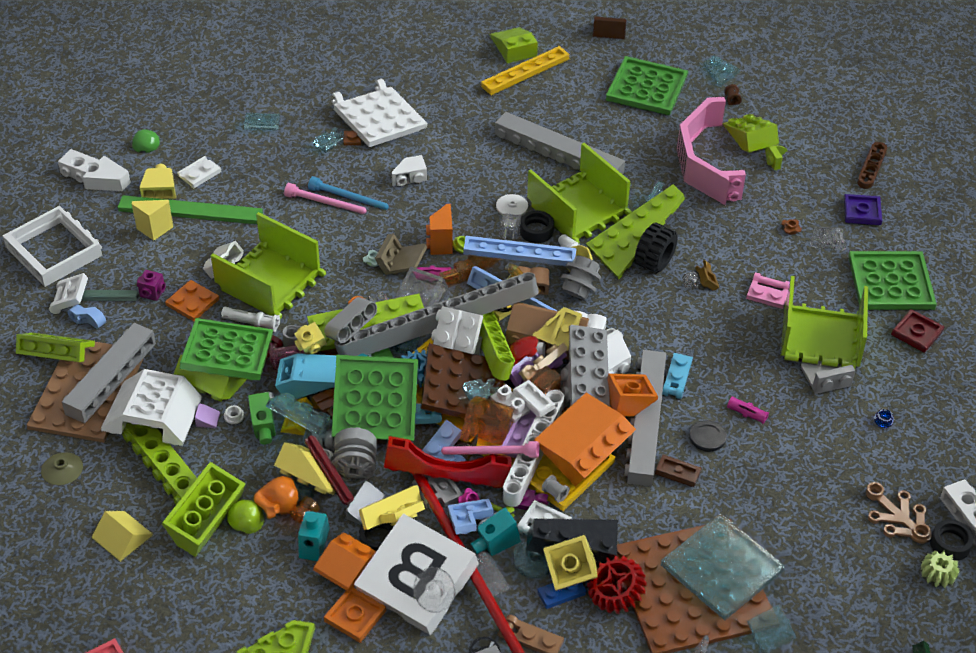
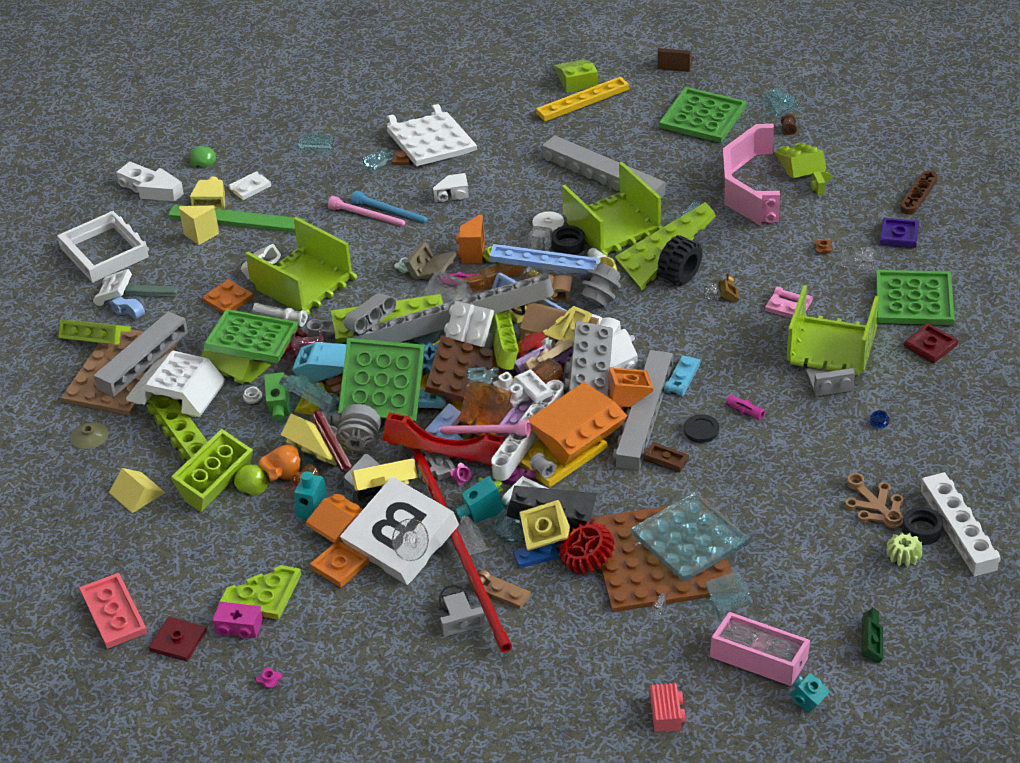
camera: 10 degrees right, 5 degrees down
(151, 285) = (190, 282): magenta brick -> none
(206, 416) = (226, 396): lavender slope -> none
(309, 339) = (329, 328): light yellow brick -> none
(464, 515) = (452, 484): light blue plate -> none

